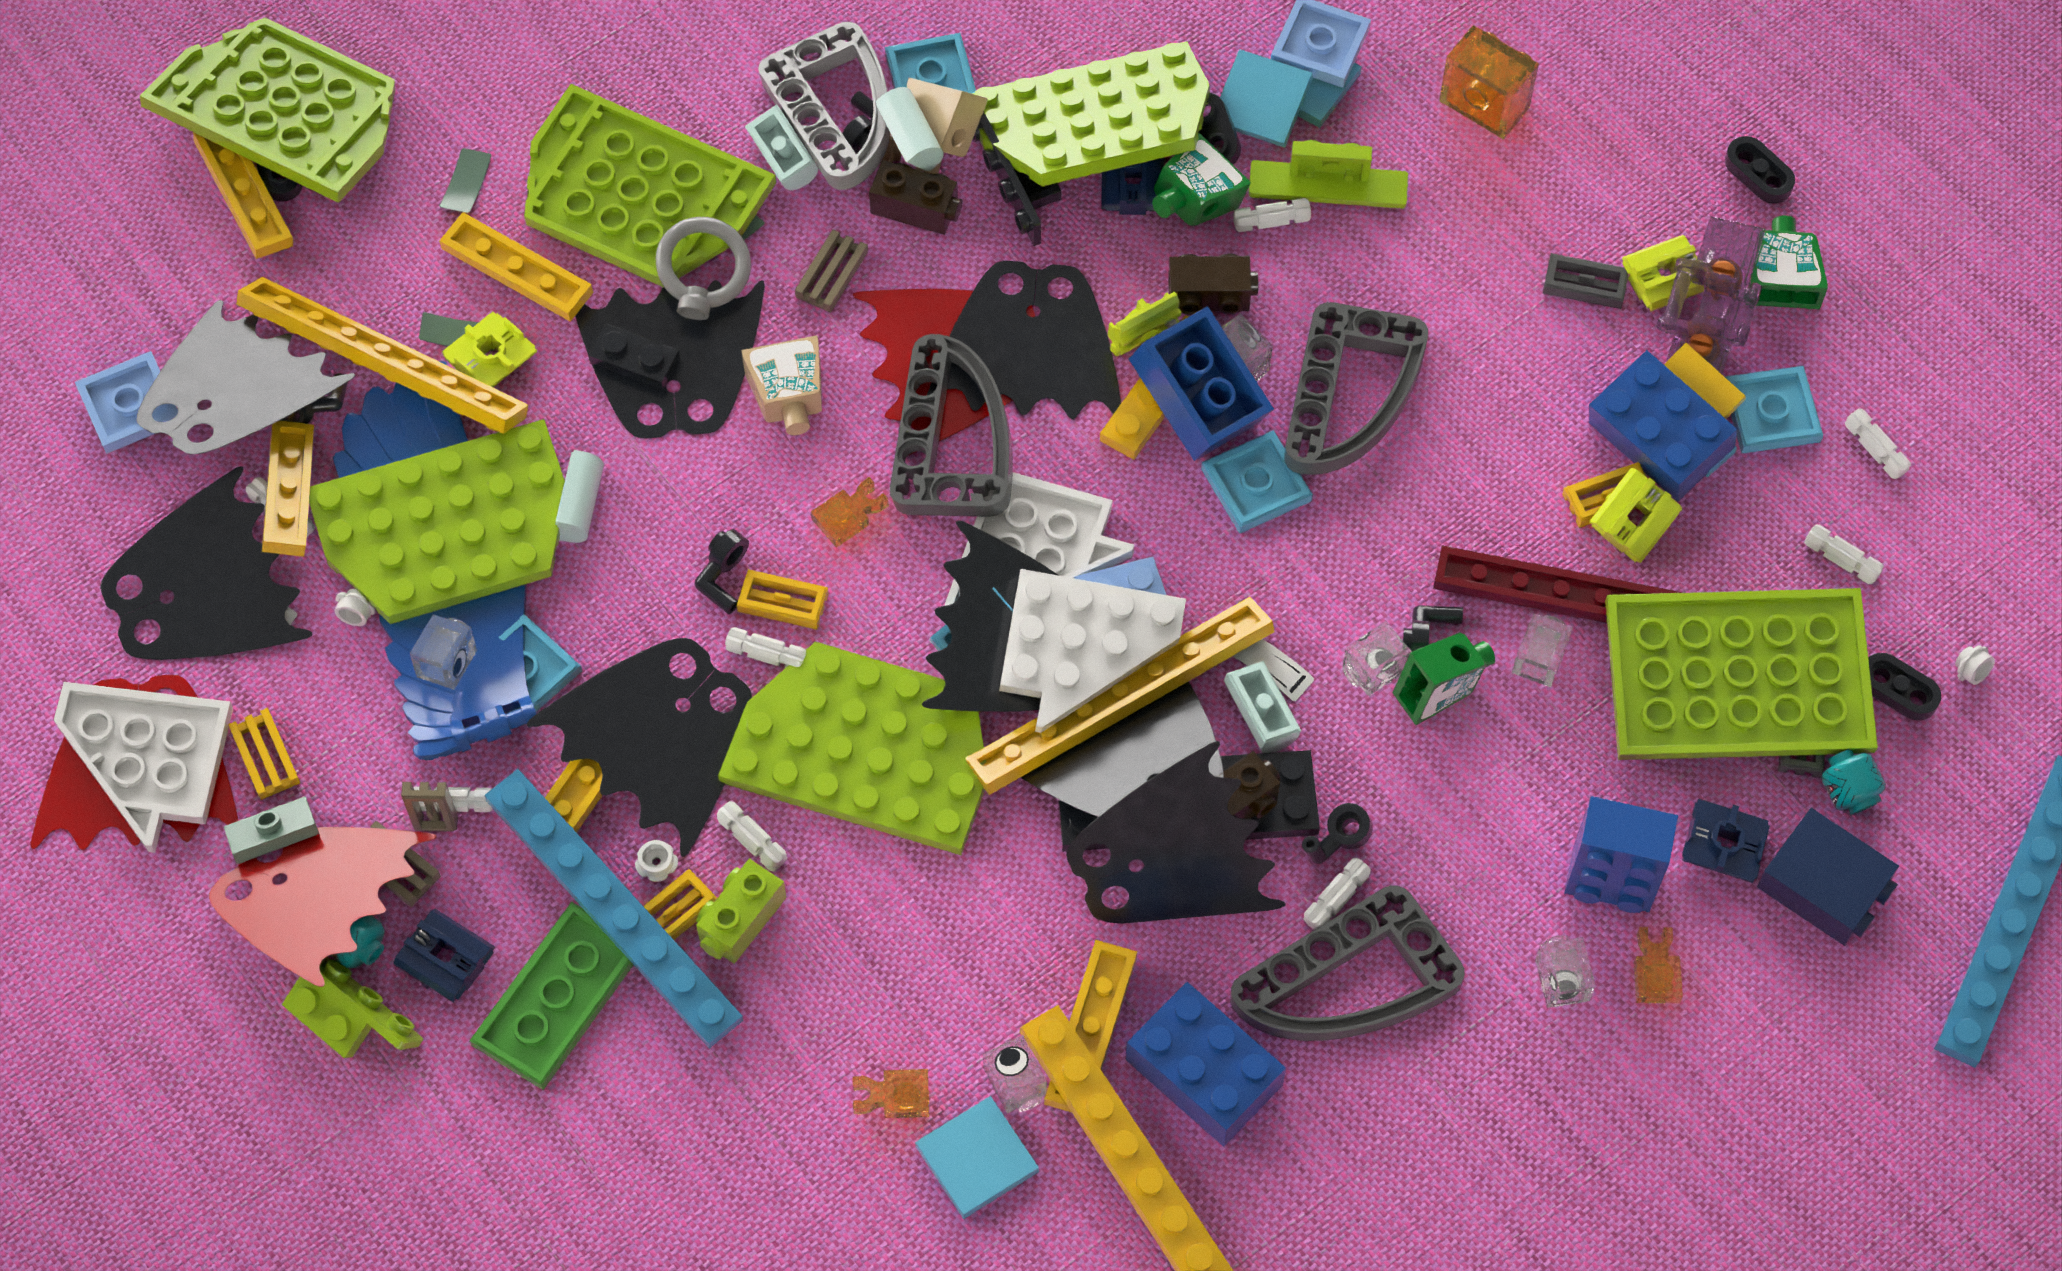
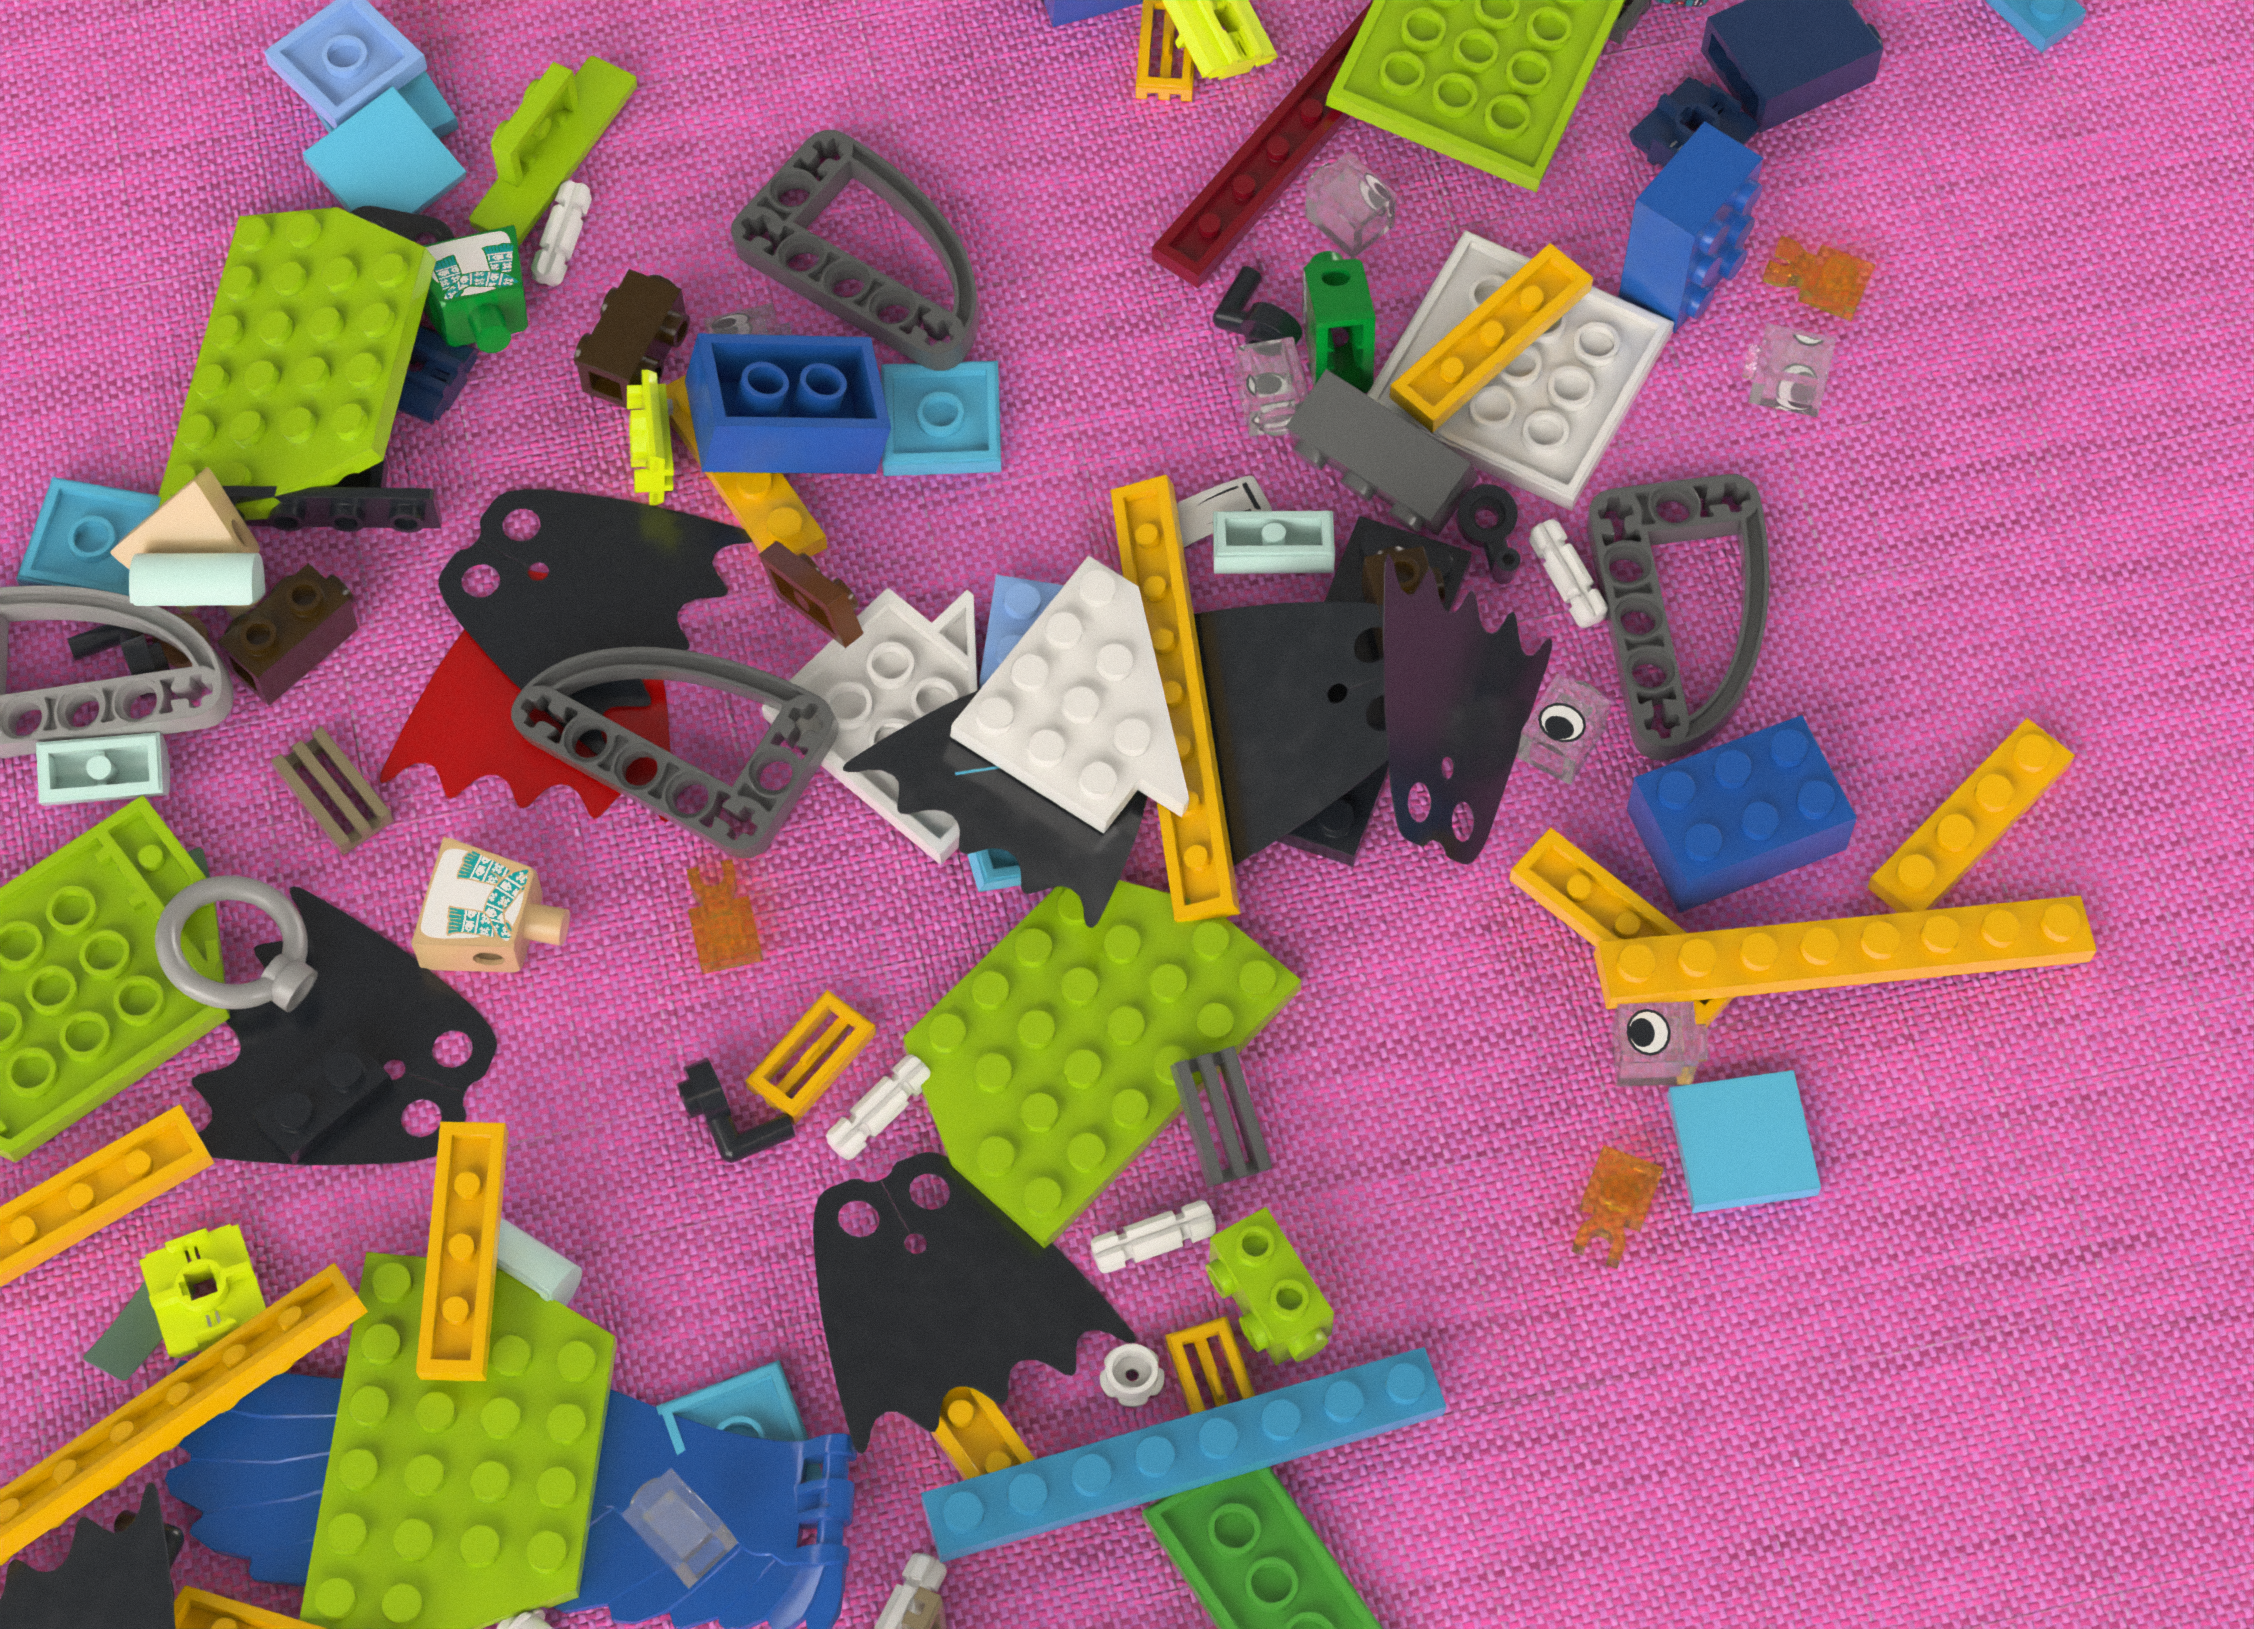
camera: 65 degrees left, 0 degrees up
(556, 461) = (462, 1251): none -> yellow plate
(817, 864) = (1243, 1110): none -> dark grey tile
(1079, 462) = (810, 593): none -> reddish brown plate
(1217, 933) = (1564, 728): none -> clear brick
(1281, 1216) = (1971, 820): none -> yellow plate
(1358, 741) = (1380, 454): none -> dark grey brick
(1478, 805) = (1556, 402): none -> white tile
(1481, 772) = (1490, 337): none -> yellow plate

